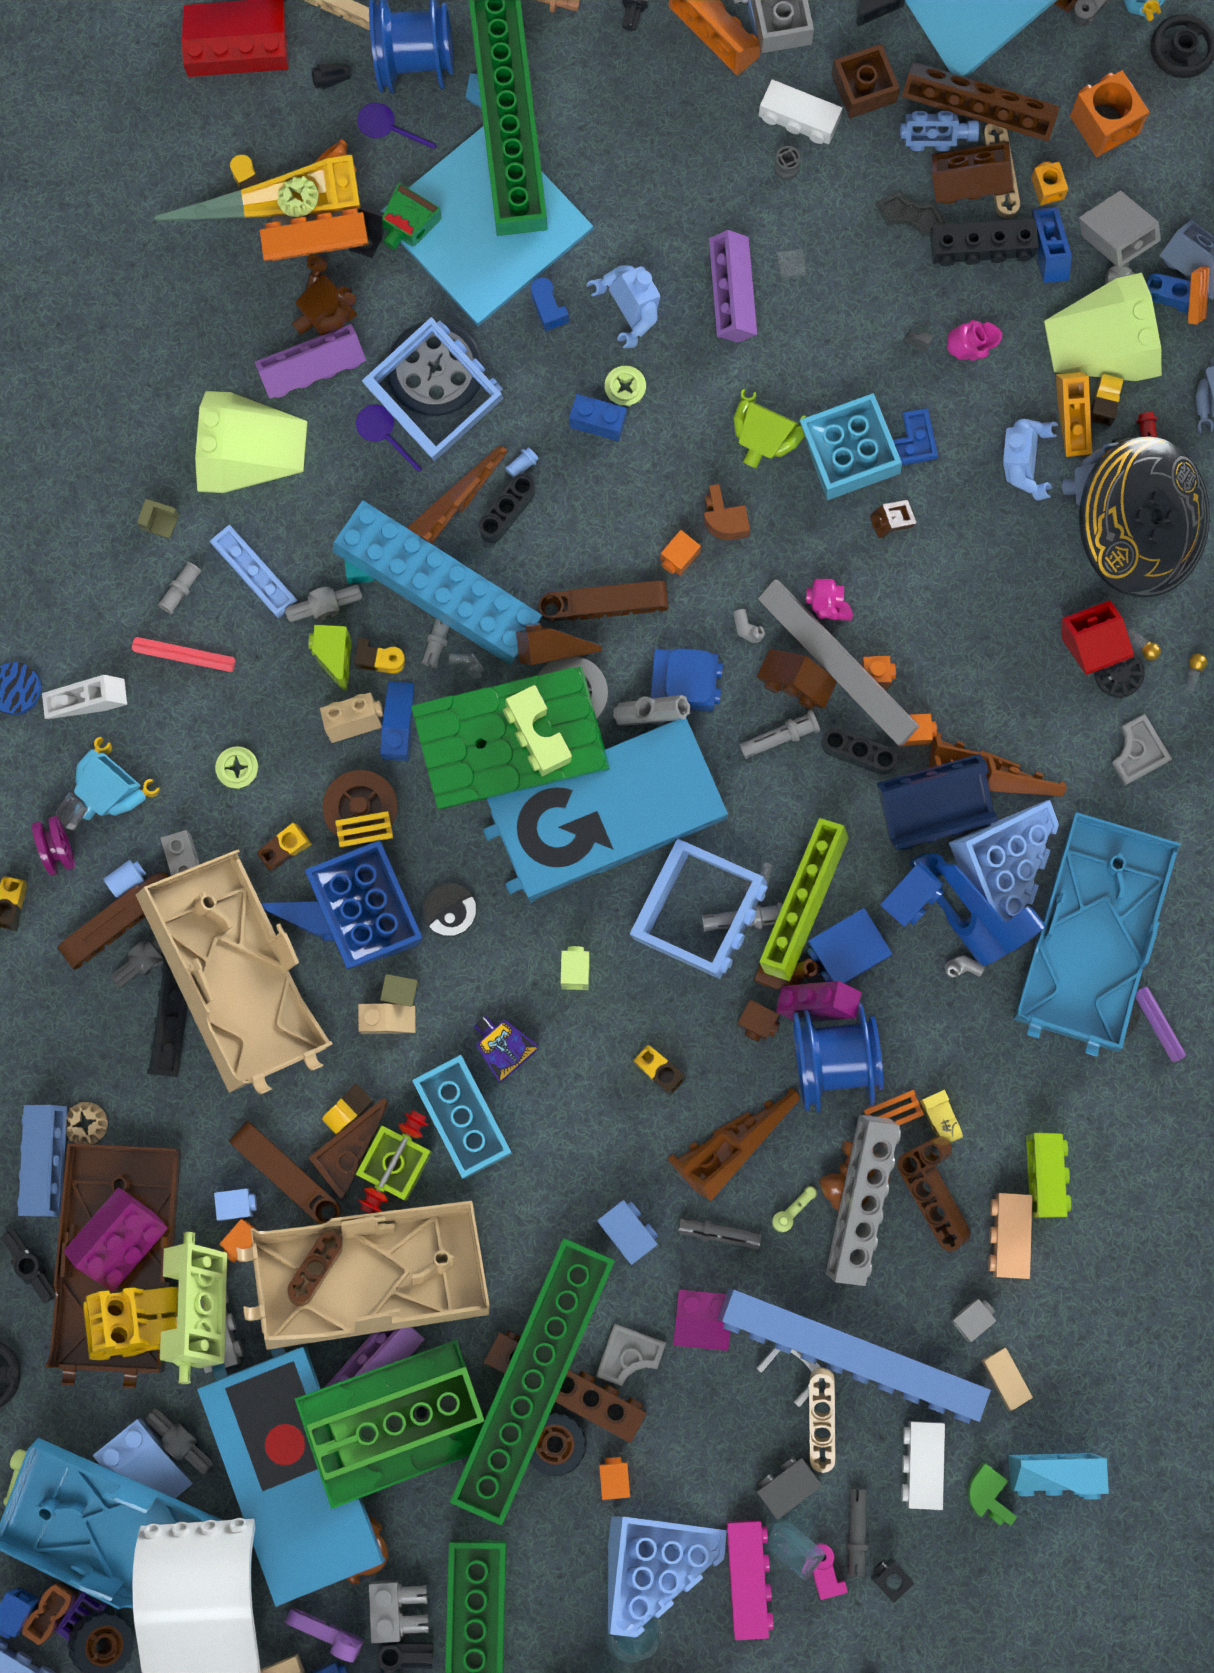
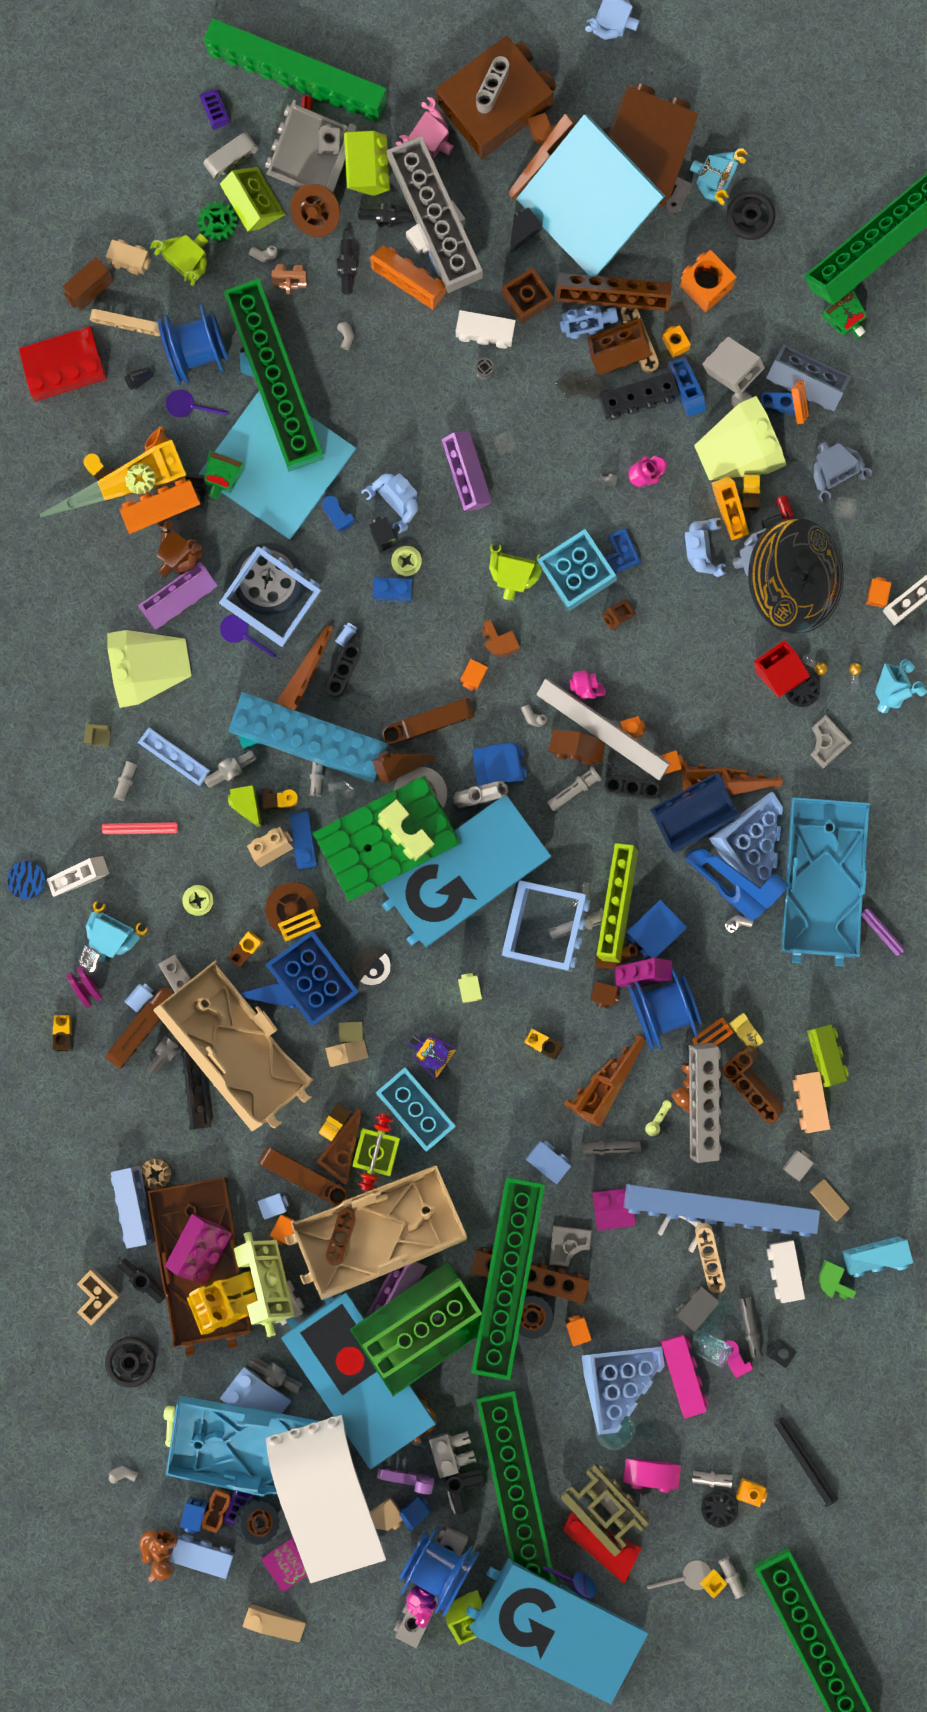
camera: 10 degrees left, 5 degrees up
(601, 341) = (382, 534): none -> black brick
(617, 75) = (346, 329): none -> light grey arm
(913, 893) = (690, 885): blue brick -> none

